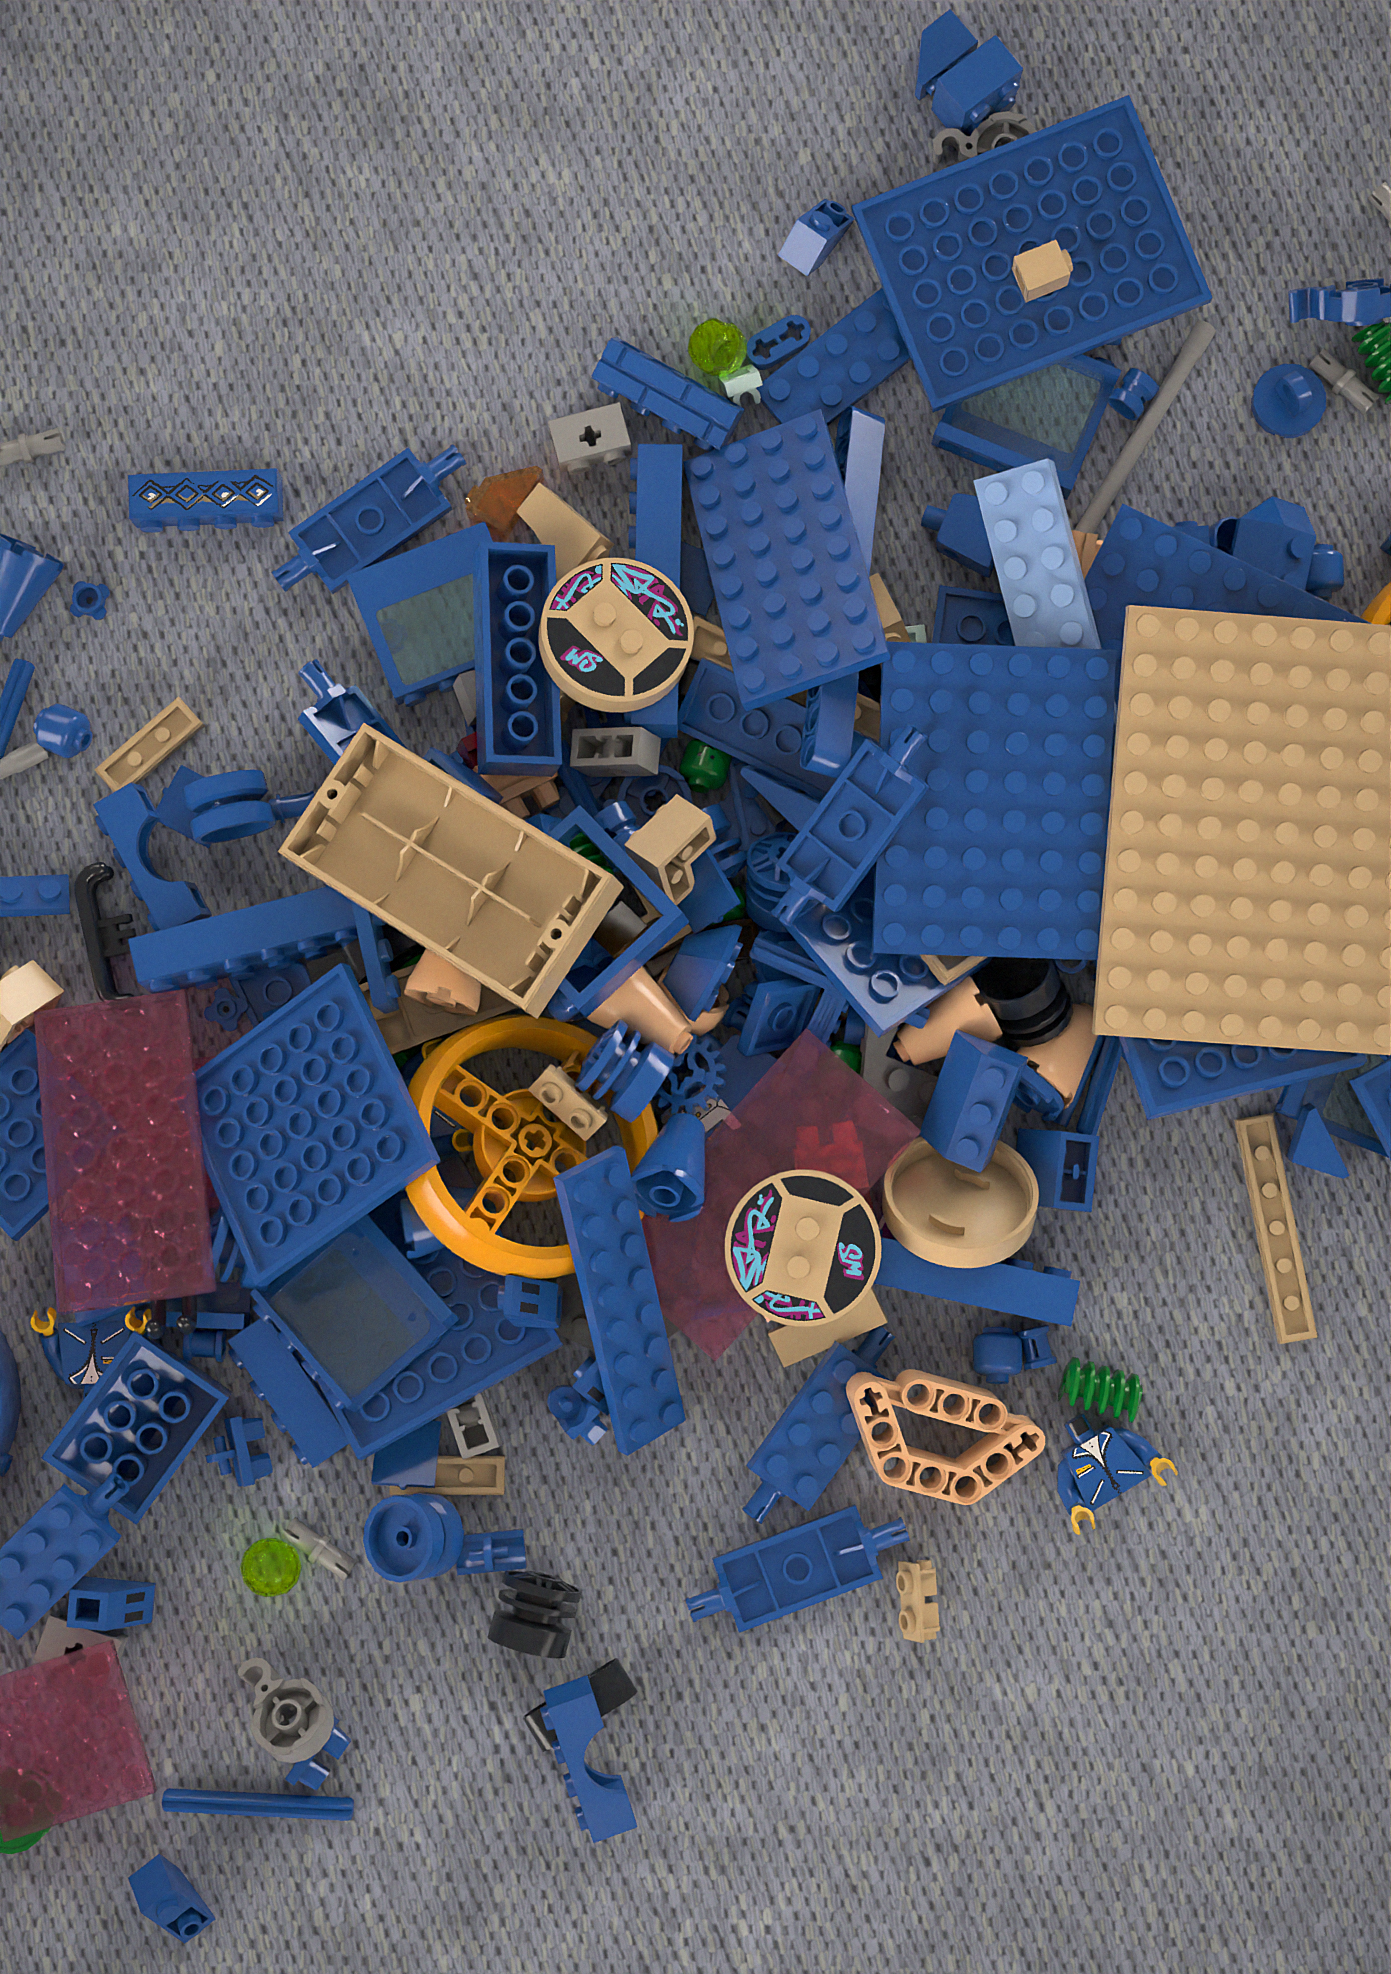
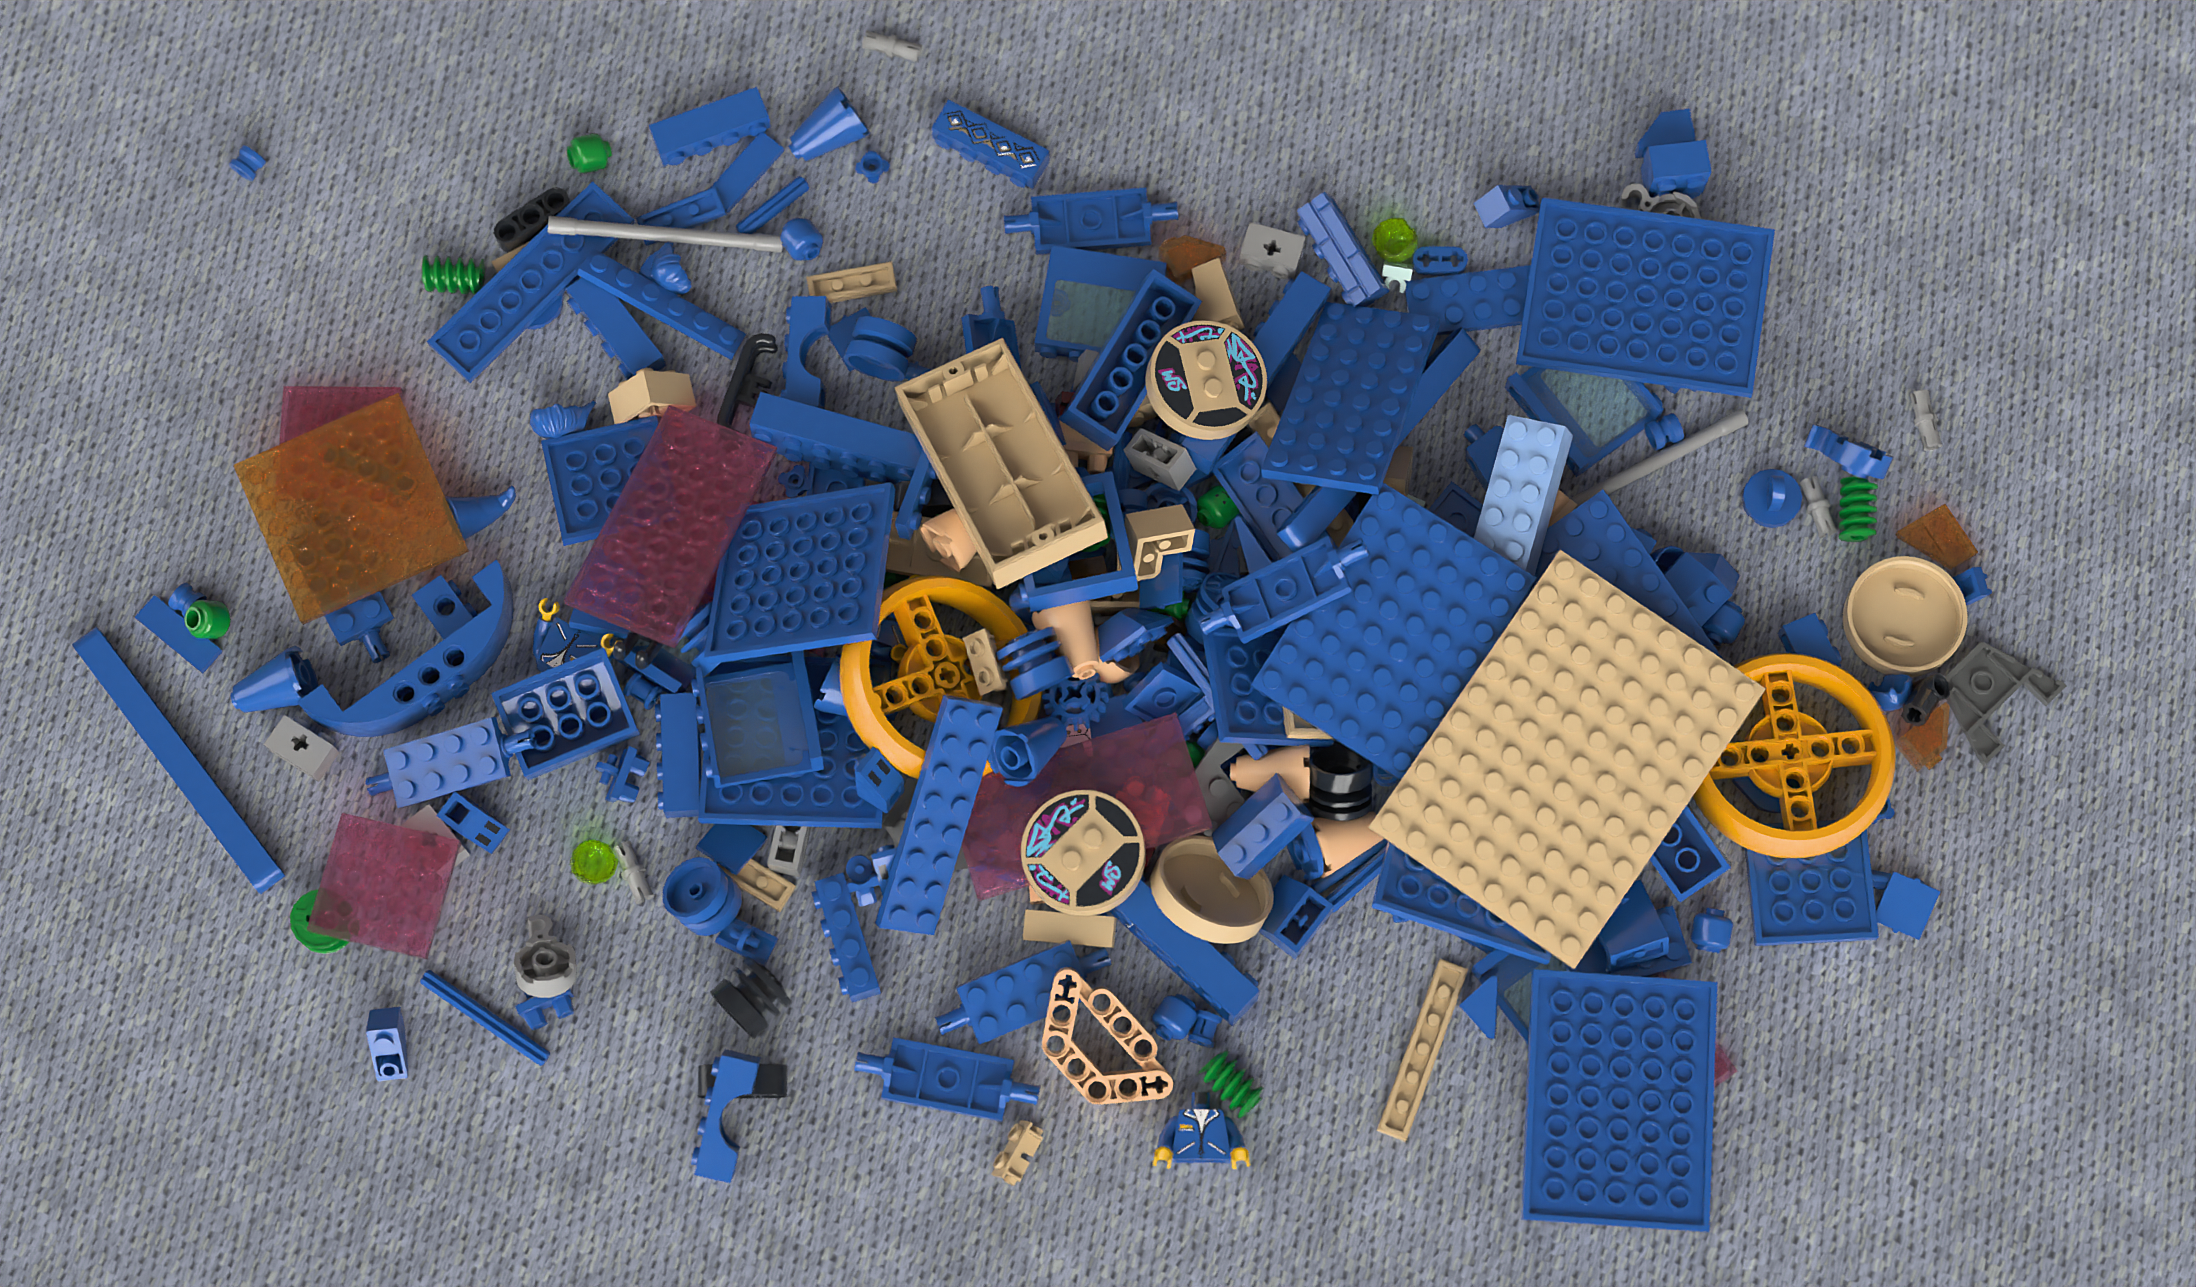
camera: 30 degrees right, 10 degrees down
(596, 1481) = (847, 936): none -> blue brick
(1042, 270) = (1644, 309): tan brick -> none

